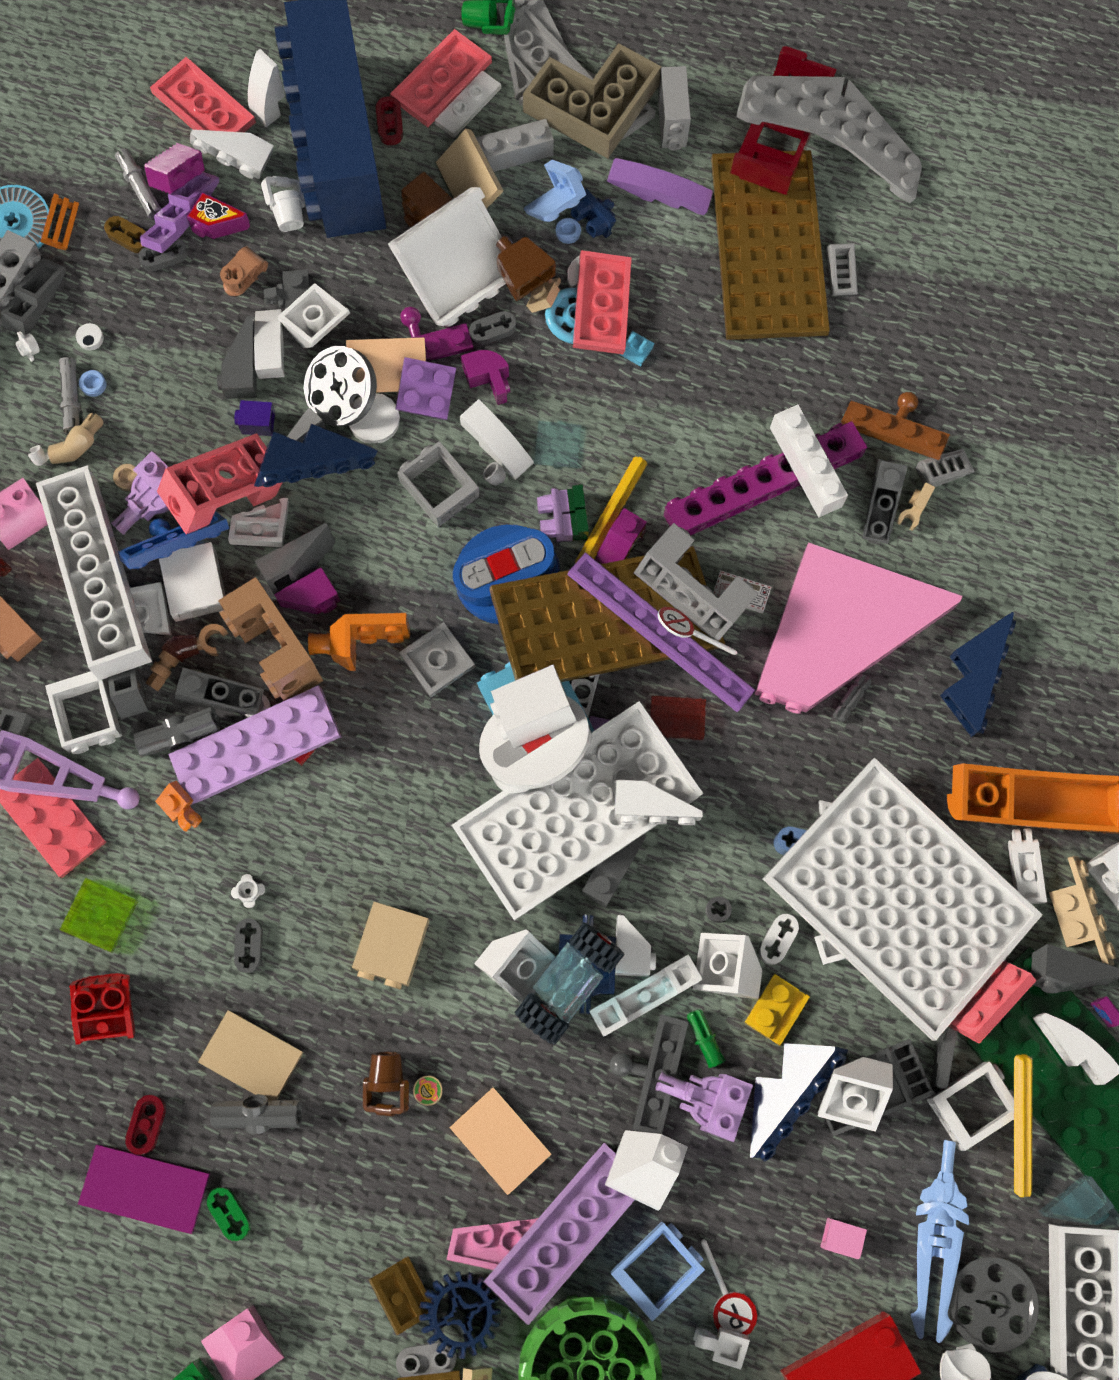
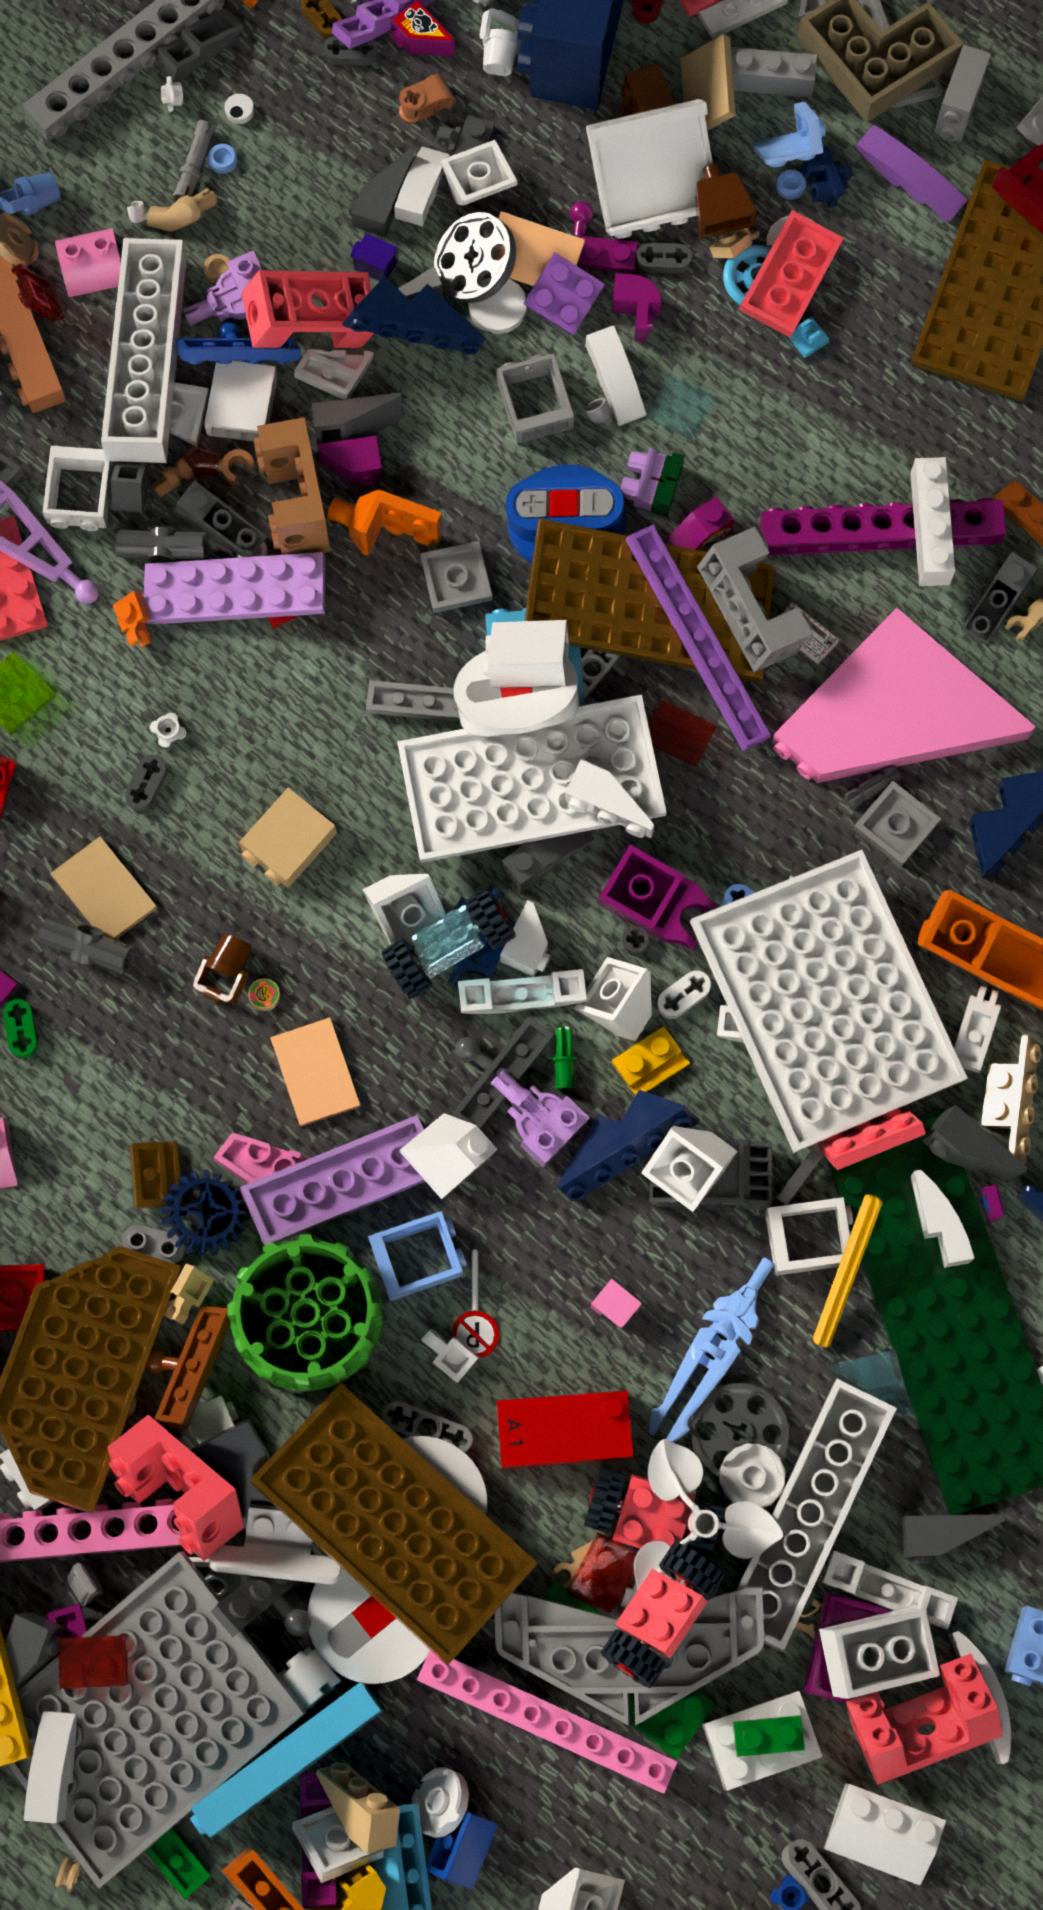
camera: 25 degrees right, 0 degrees up
(446, 780) = (411, 701): none -> light grey plate
(613, 507) = (717, 487): yellow axle -> none
(681, 626) = (722, 638): white piece -> none
(729, 867) = (666, 898): none -> magenta brick
(886, 721) = (897, 824): none -> light grey plate
(1023, 1341) = (752, 1475): none -> white tile

